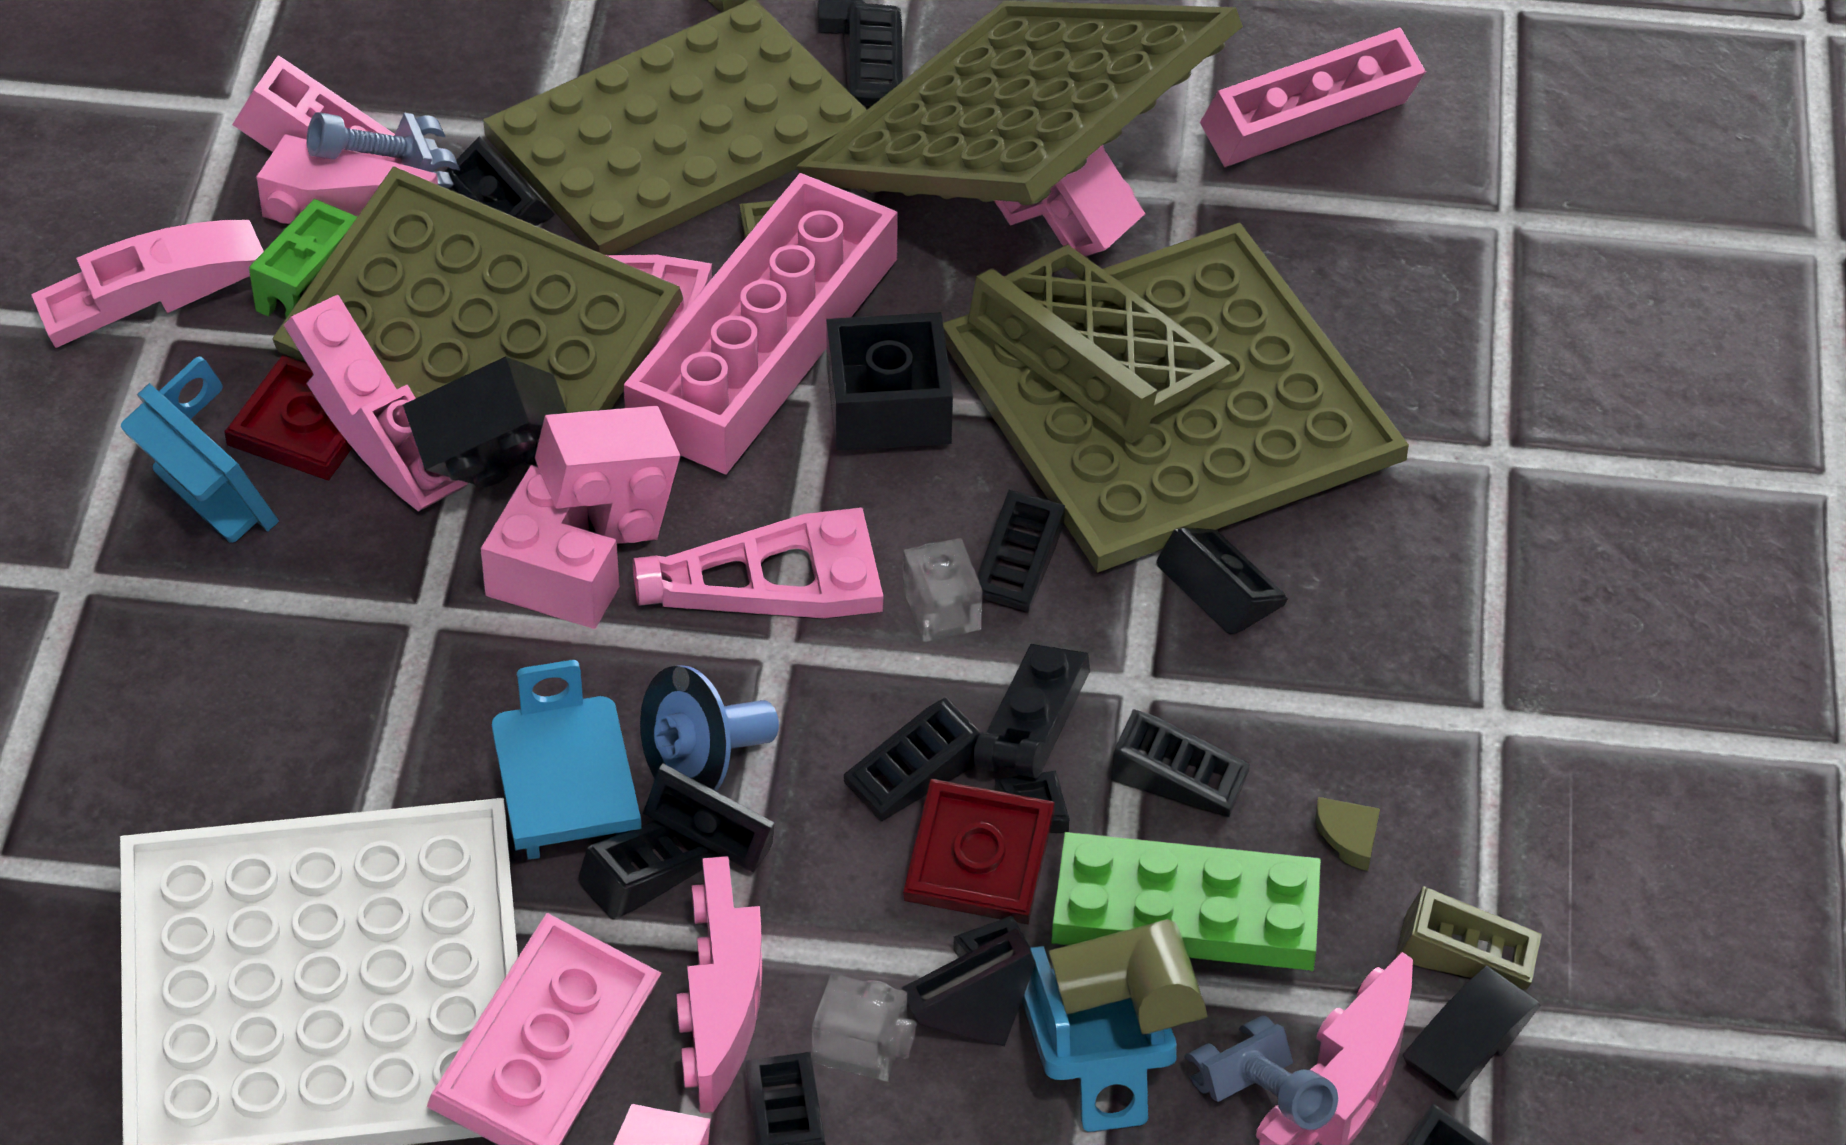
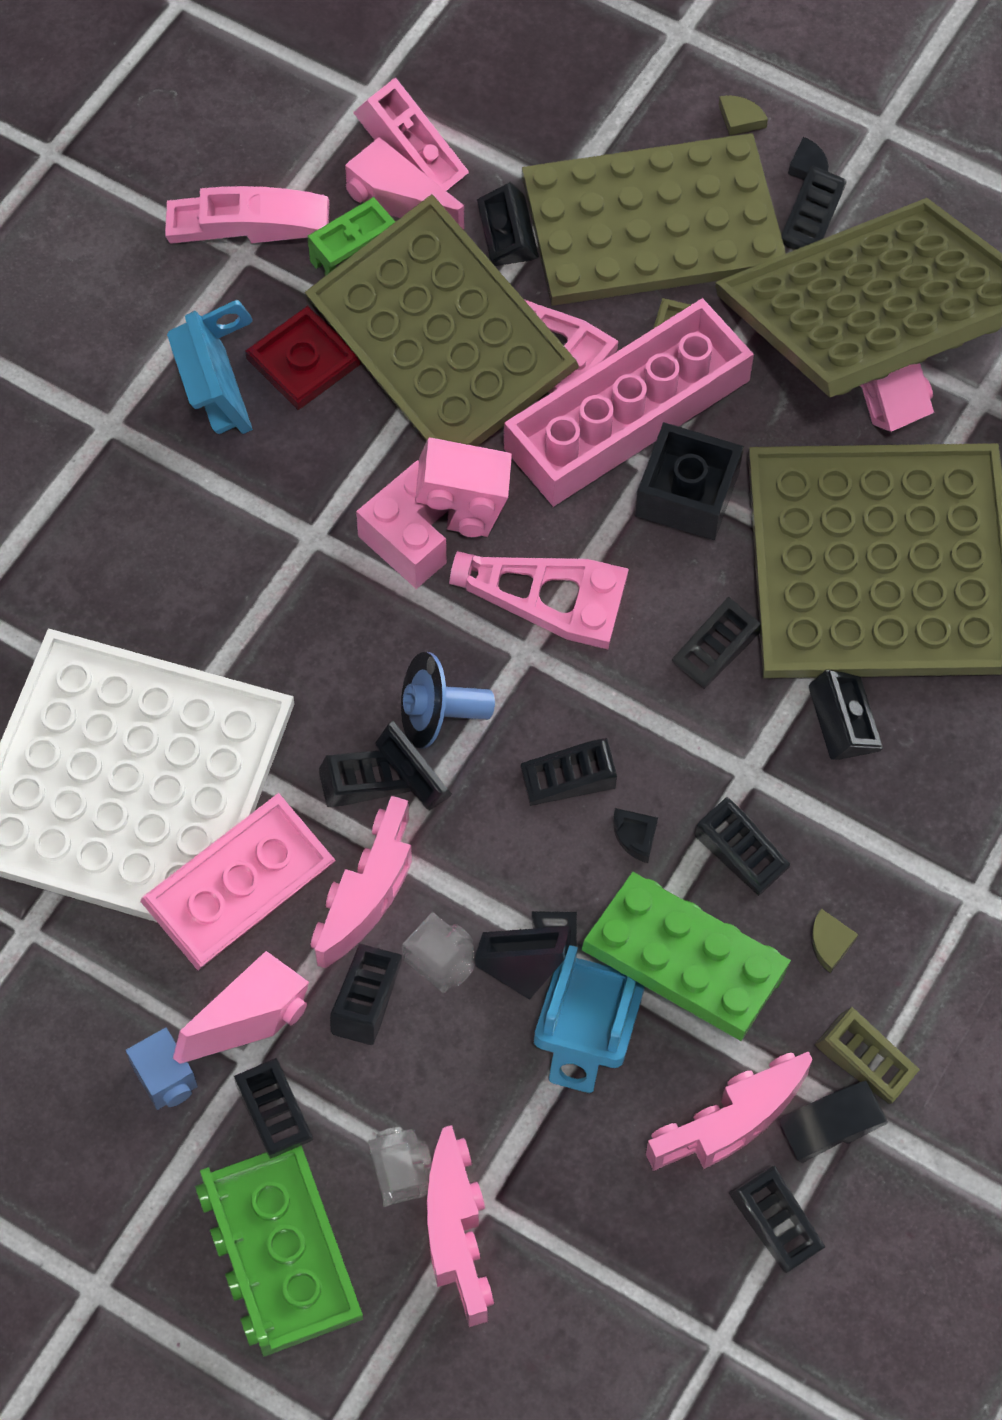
camera: 25 degrees right, 15 degrees up
(329, 137) = (465, 168): sand blue bar -> none
(365, 401) = (340, 373): bright pink slope -> none
(484, 421) = (400, 419): black brick -> none
(563, 763) = (339, 689): dark azure piece -> none
(942, 589) = (649, 652): clear brick -> none
(979, 851) = (578, 856): dark red tile -> none
(1033, 711) = (664, 768): black plate -> none
(1076, 358) = (814, 509): olive fence -> none
(1135, 964) = (622, 997): olive brick -> none
(1302, 1096) = (682, 1131): sand blue bar -> none

